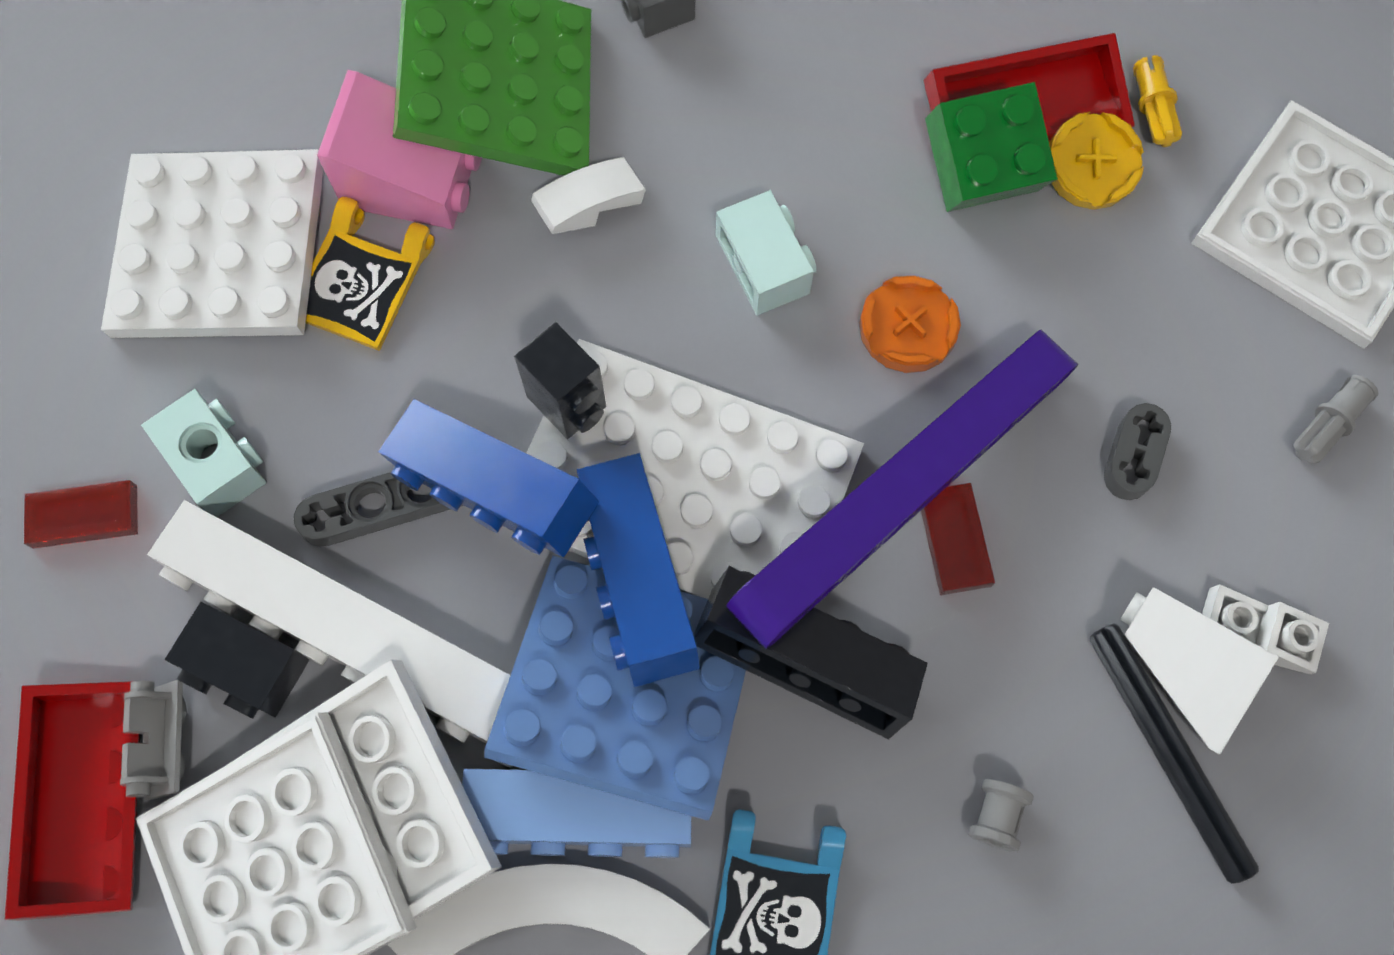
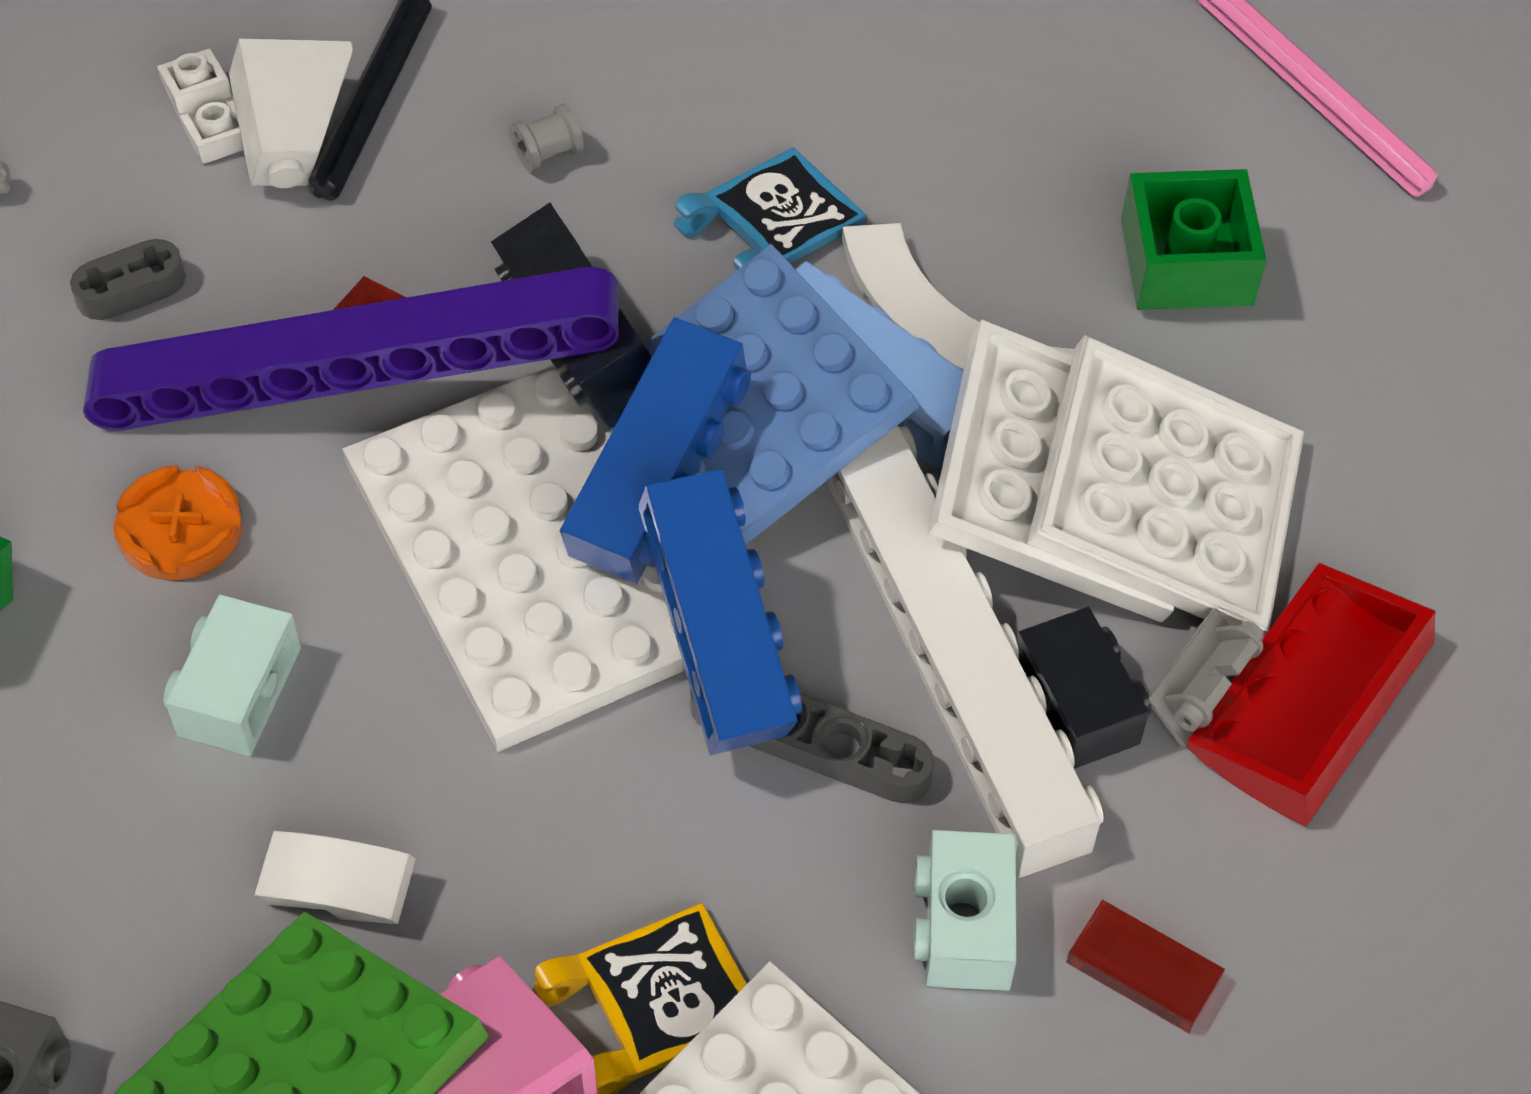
camera: 140 degrees left, 15 degrees down
(562, 381) = (565, 641): black brick -> none

